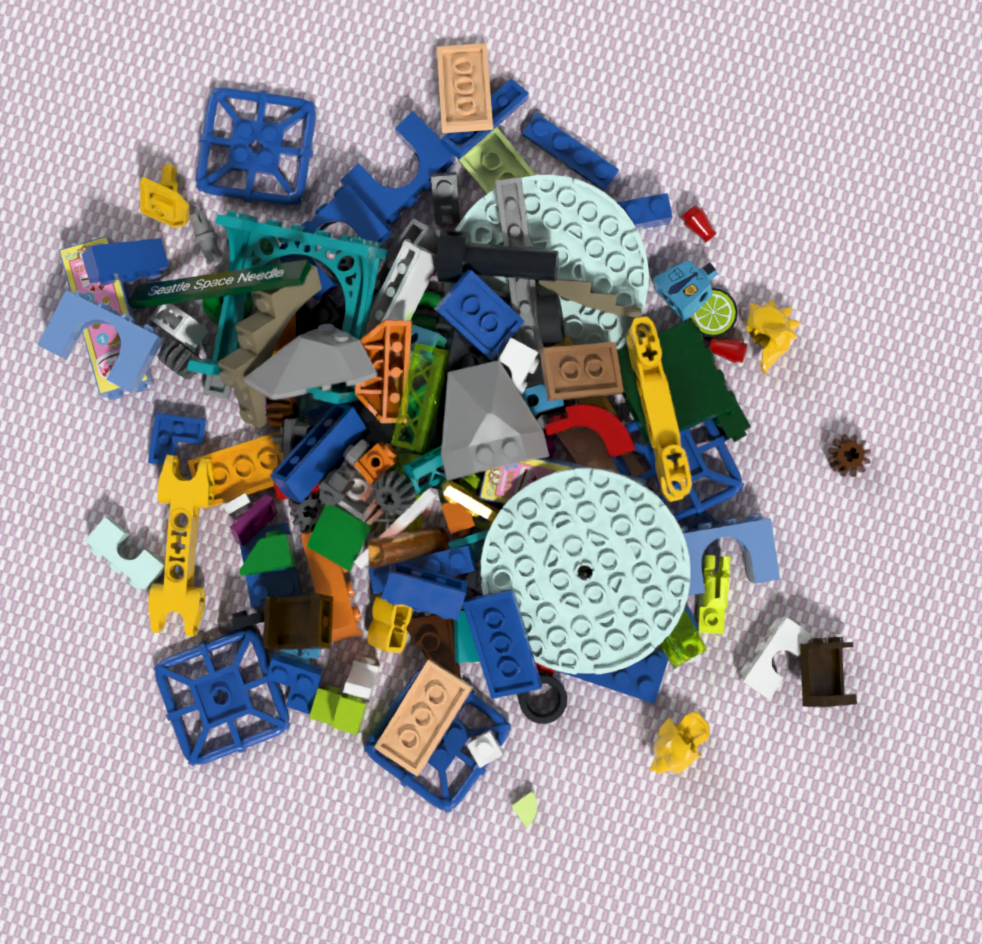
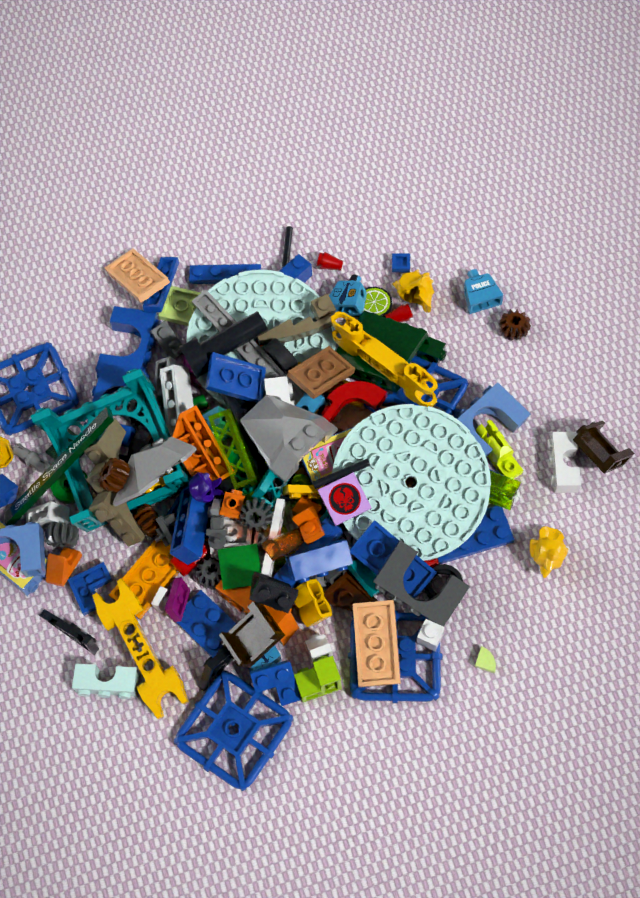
camera: 30 degrees left, 20 degrees down
(124, 474) = (71, 631): none -> black wing
(158, 395) = (61, 566): none -> orange slope
(216, 388) = (97, 536): light grey plate -> none
(264, 349) = (114, 475): none -> reddish brown gear
(270, 554) = (205, 608): green slope -> none
(349, 593) = (272, 592): none -> black bracket
(352, 420) = (201, 484): none -> dark purple piece
(443, 540) = (309, 525): none -> orange slope
(498, 543) = (344, 499): none -> tile
(509, 725) = (436, 609): none -> dark grey arch
(514, 513) = (341, 473): none -> black bar
(639, 293) = (322, 307): none -> dark tan brick
(663, 169) = (287, 245): none -> black bar
(780, 283) = (400, 262): none -> blue plate
(842, 386) = (481, 292): none -> dark azure torso

